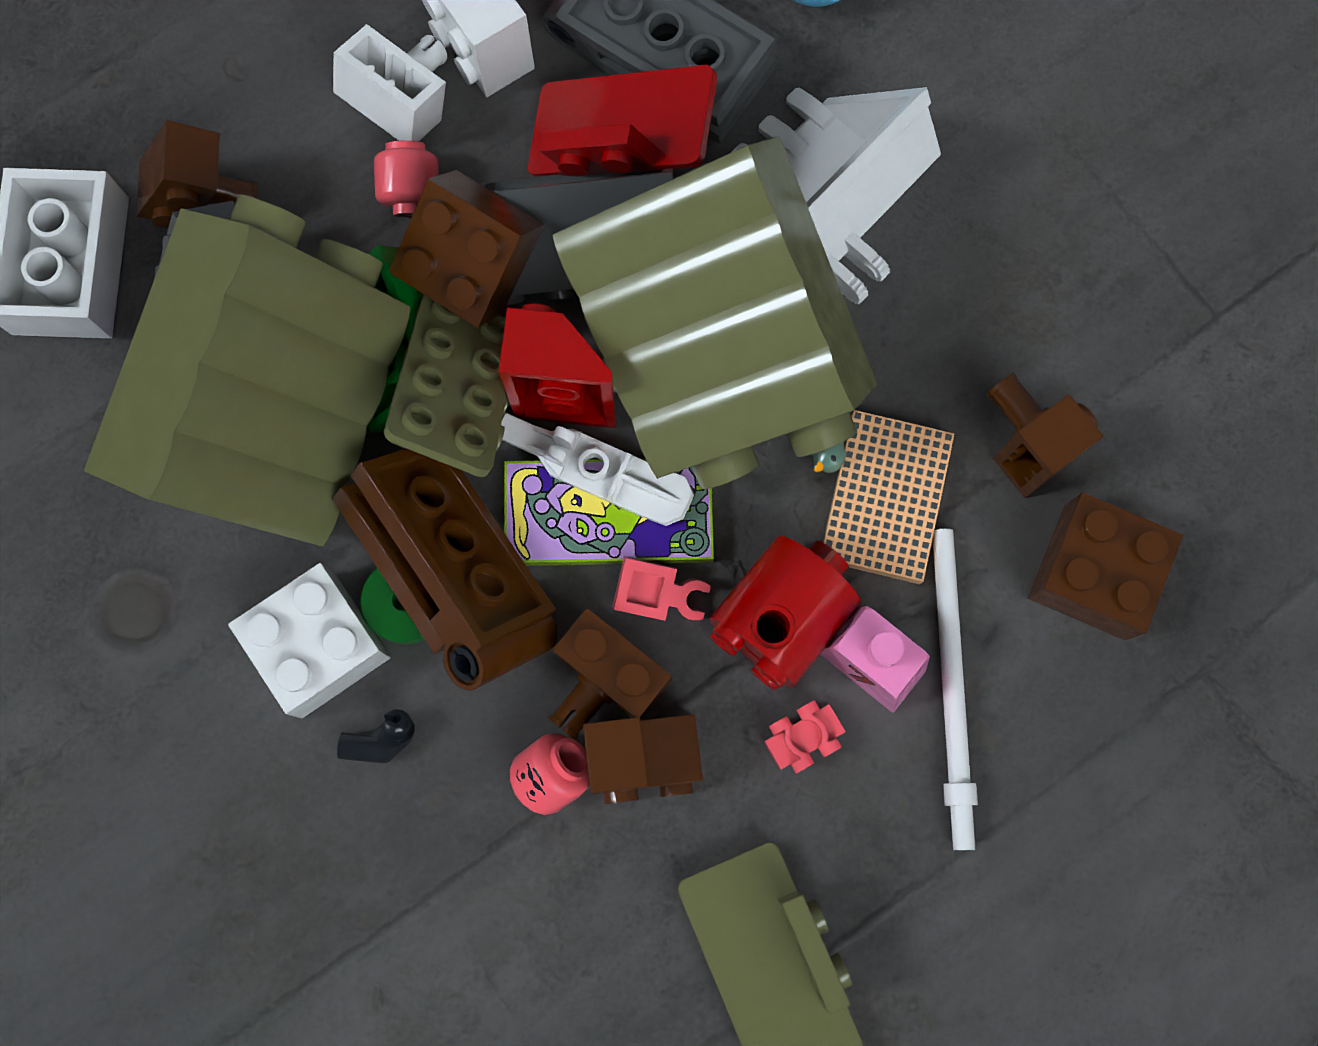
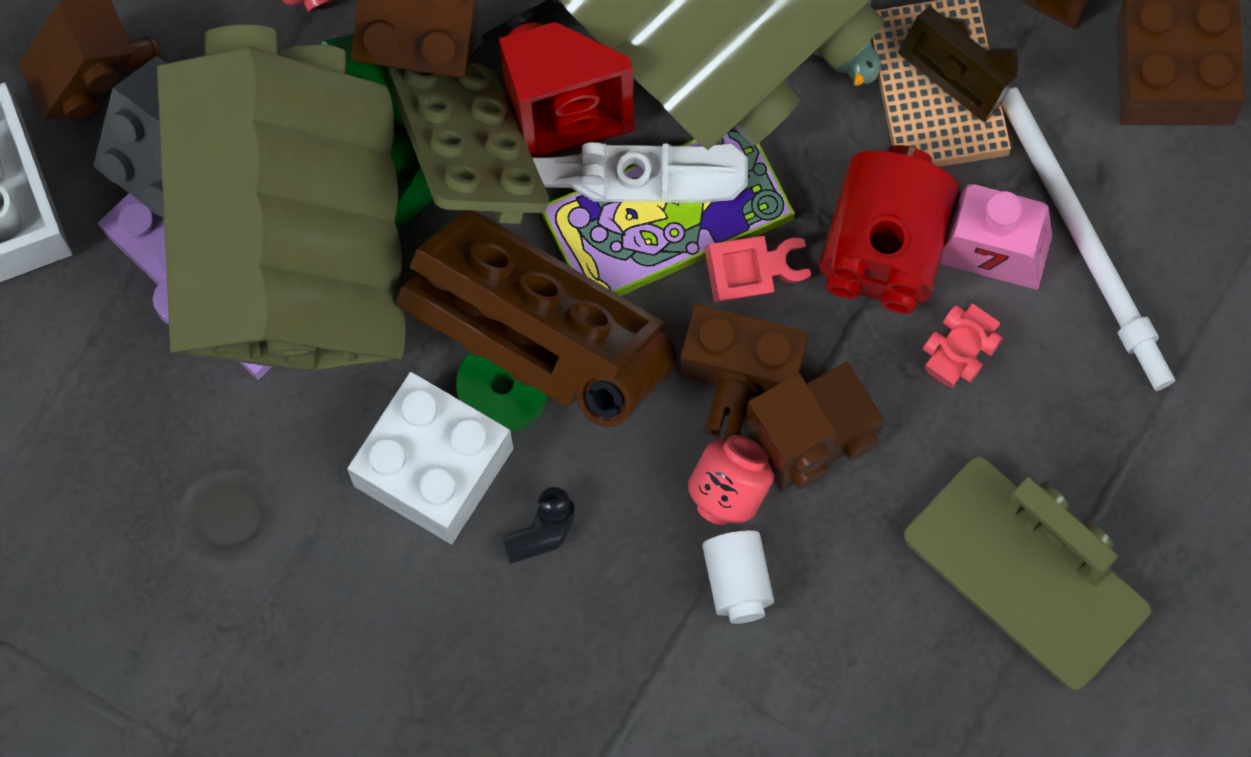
camera: 20 degrees left, 5 degrees down
(520, 860) = (738, 575): none -> white brick
(905, 483) = (959, 65): none -> dark brown tile

